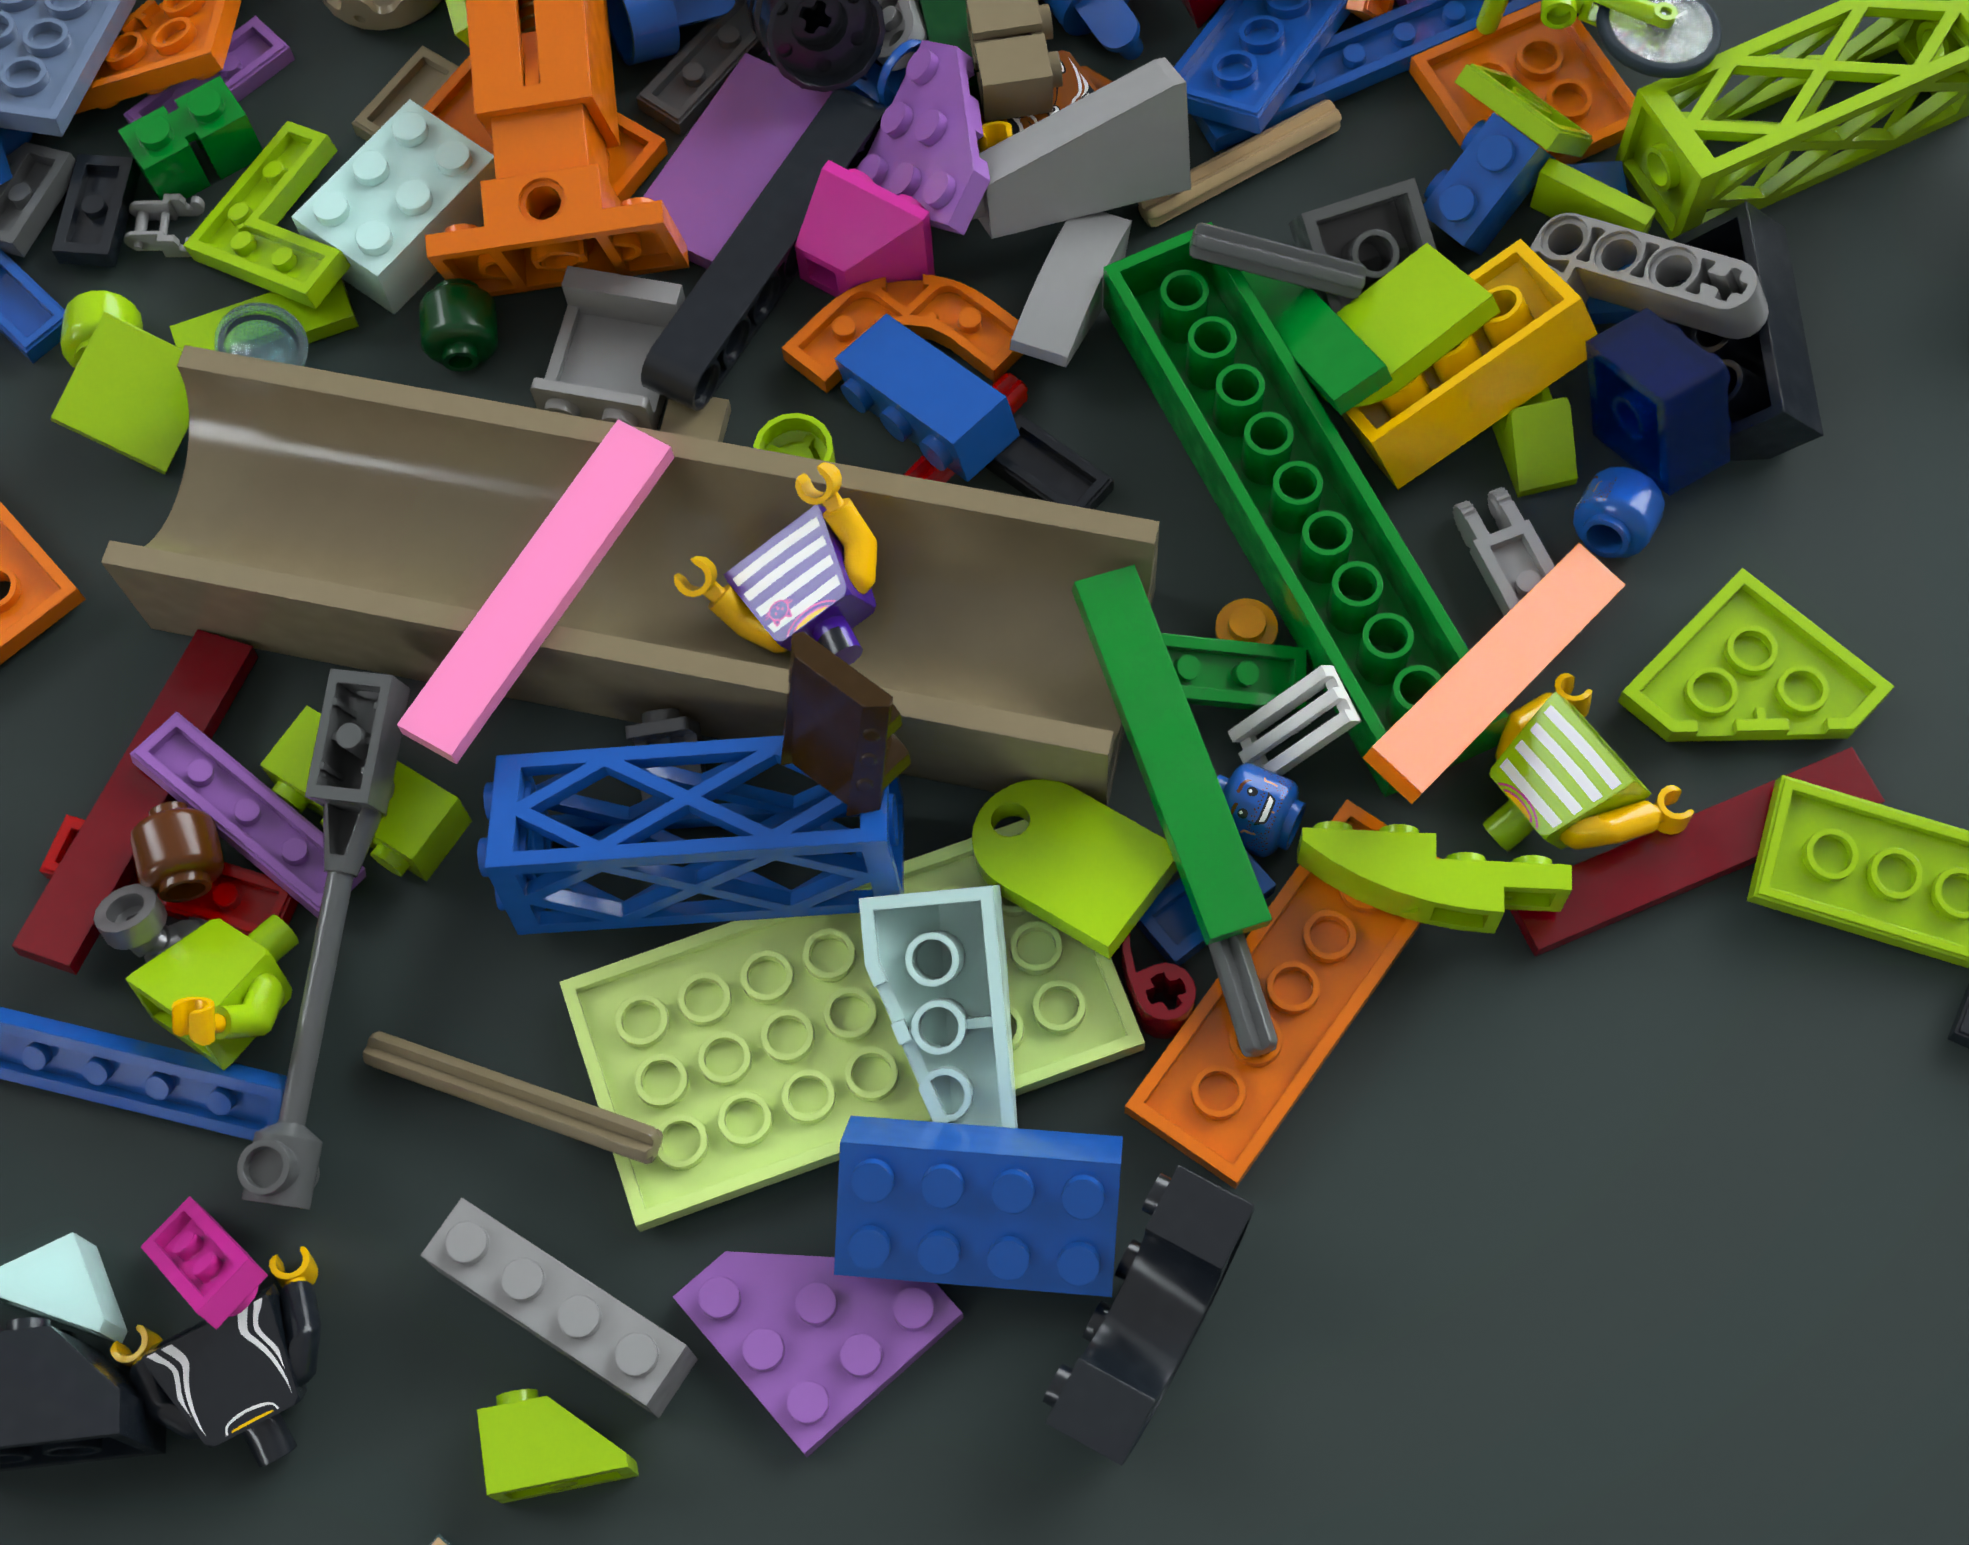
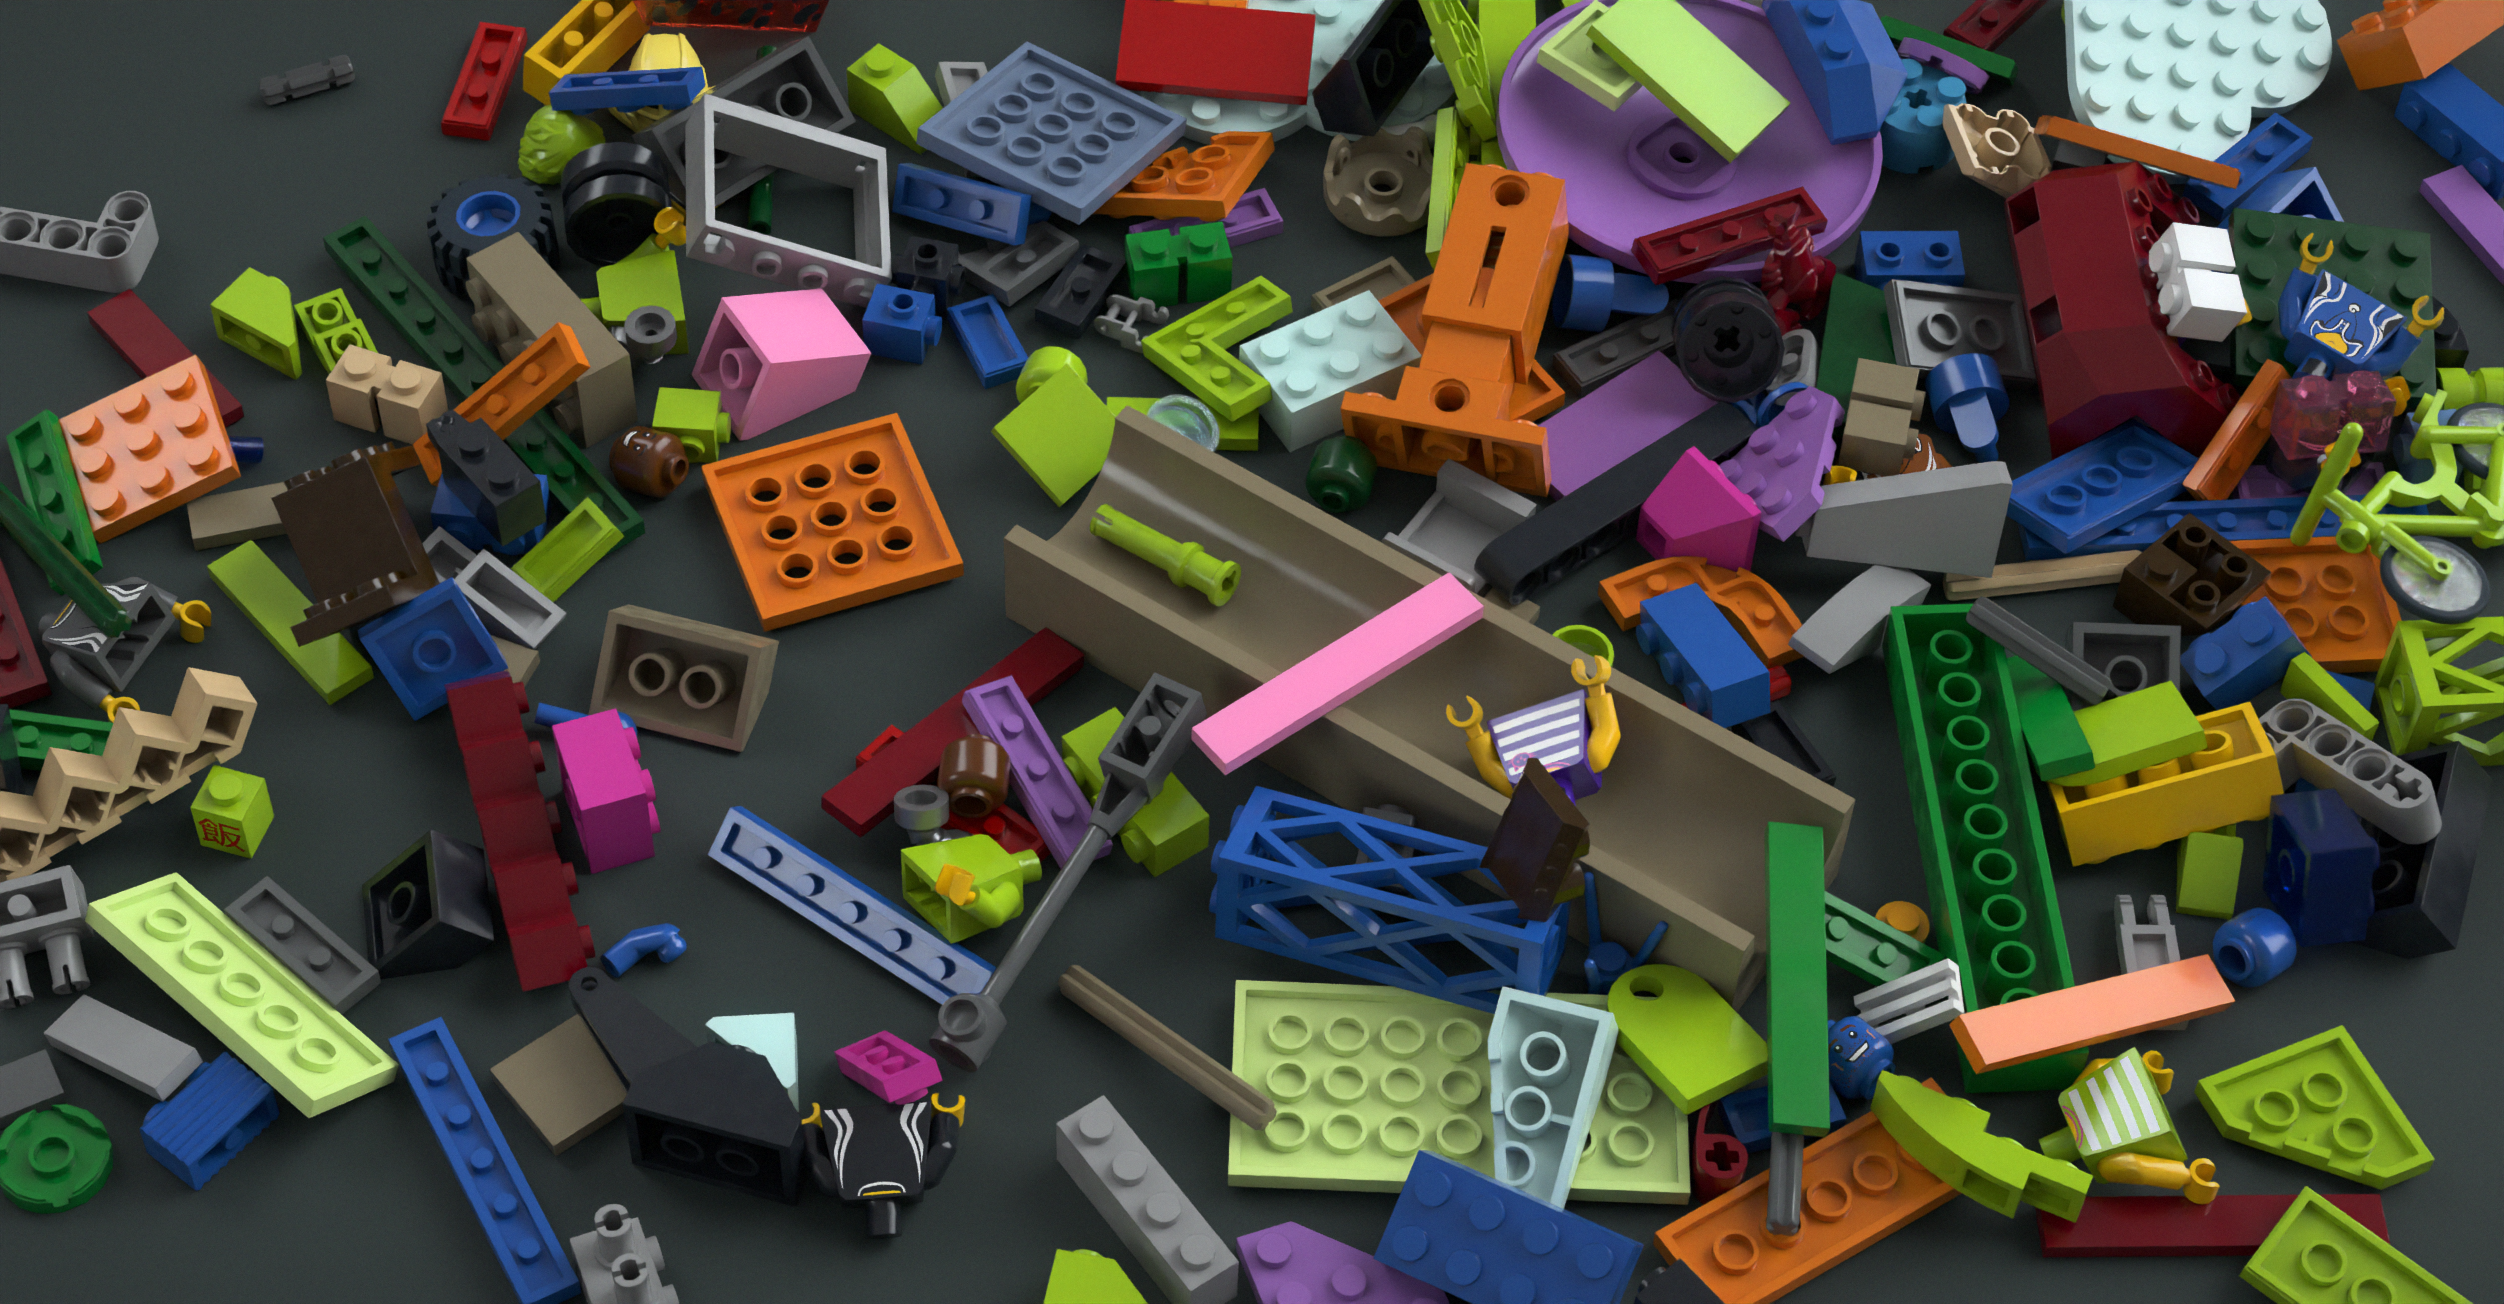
camera: 15 degrees right, 15 degrees down
(321, 503) = (1185, 562): none -> lime pin
(956, 796) = (1608, 959): none -> blue plant
(1393, 119) = (2188, 579): none -> dark brown slope
(1524, 110) = (2298, 608): lime tile -> none

